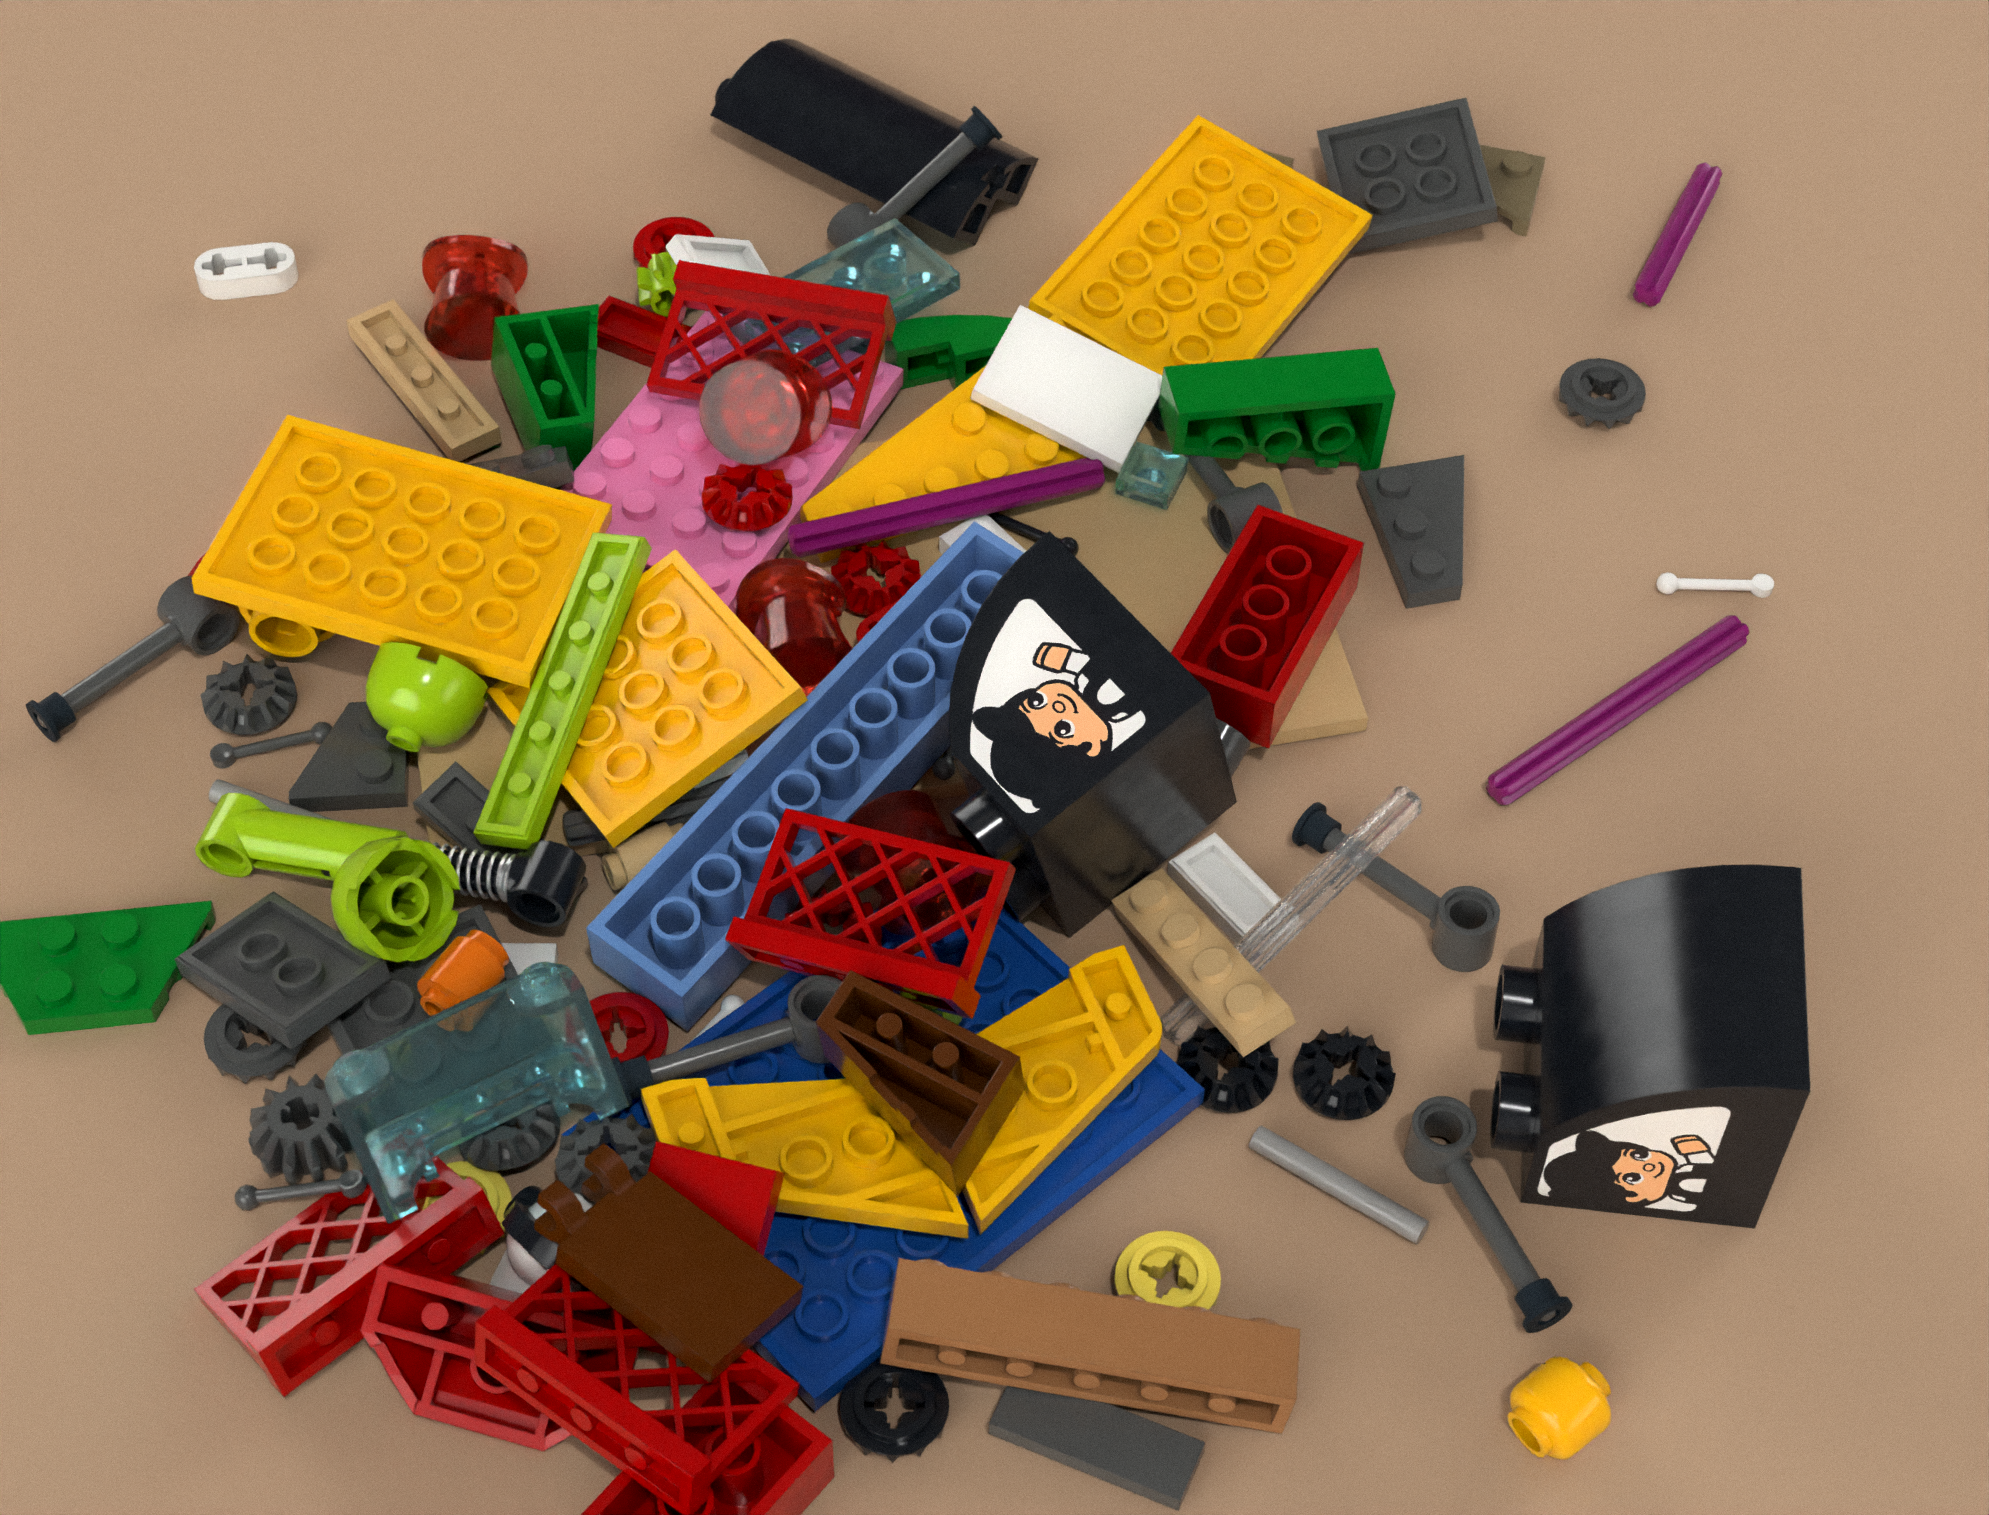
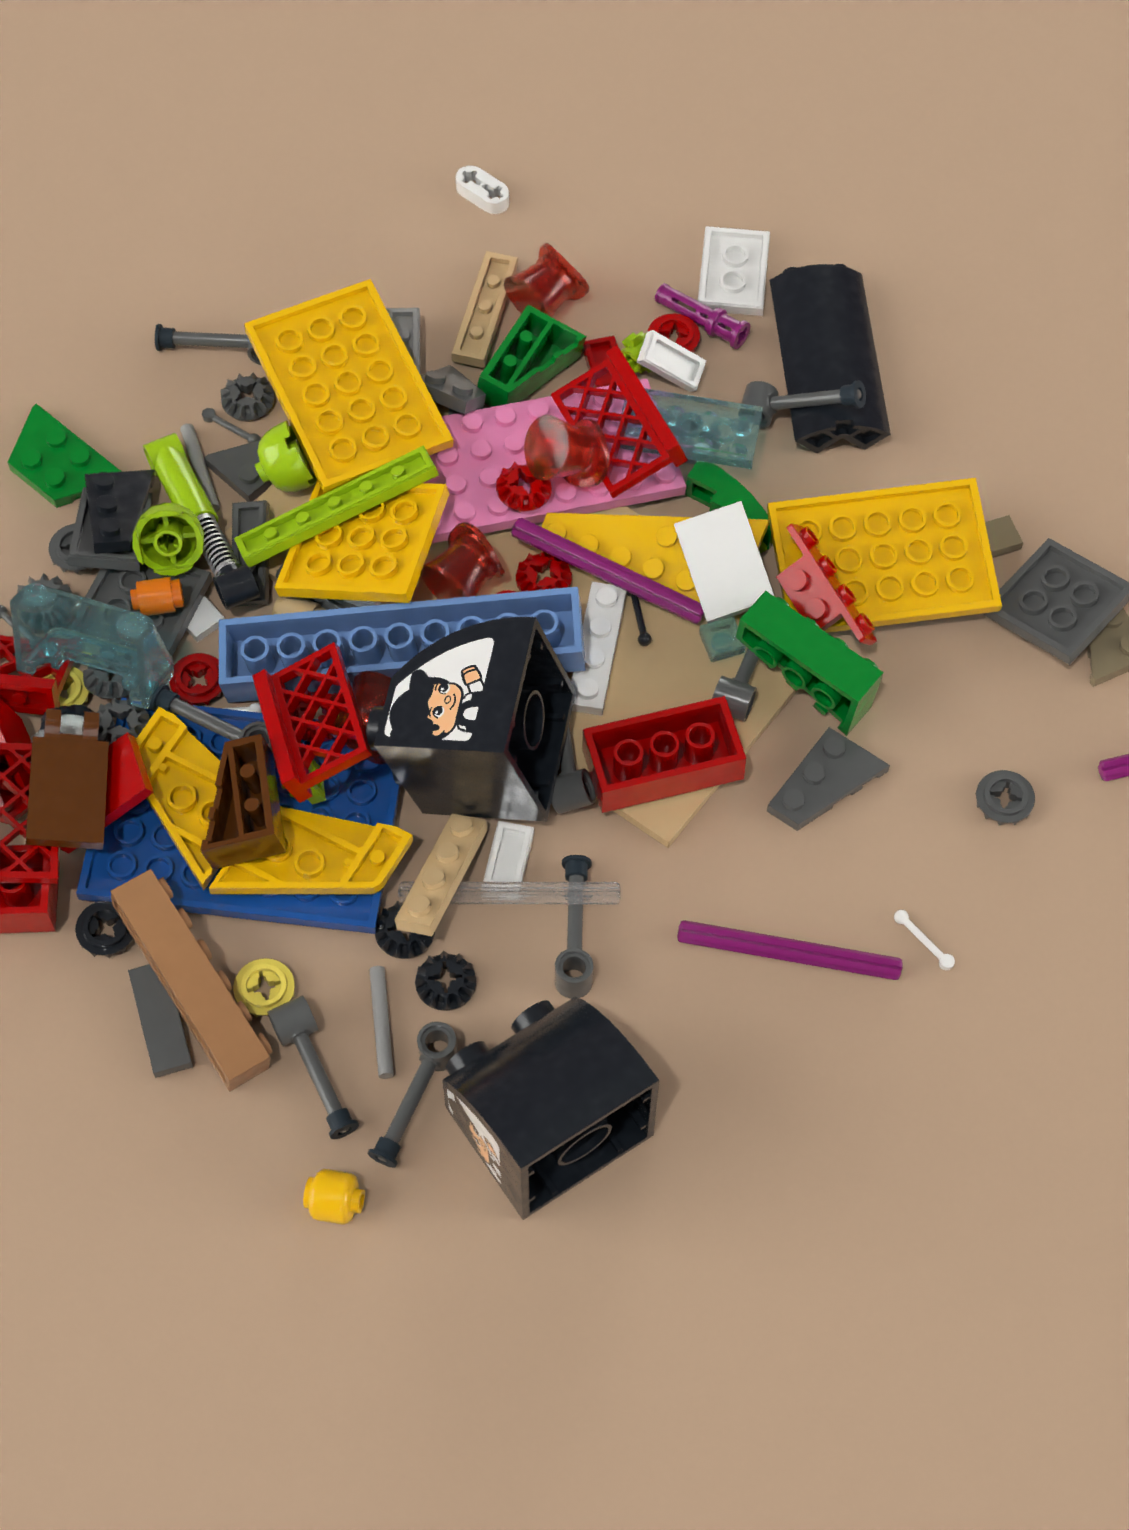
camera: 50 degrees right, 10 degrees up
(264, 934) = (116, 506): none -> black wing
(648, 143) = (734, 270): none -> white tile
(703, 198) = (716, 320): none -> magenta pin
(1188, 335) = (818, 592): none -> bracket
(1259, 1278) = (294, 1024): none -> dark grey piece

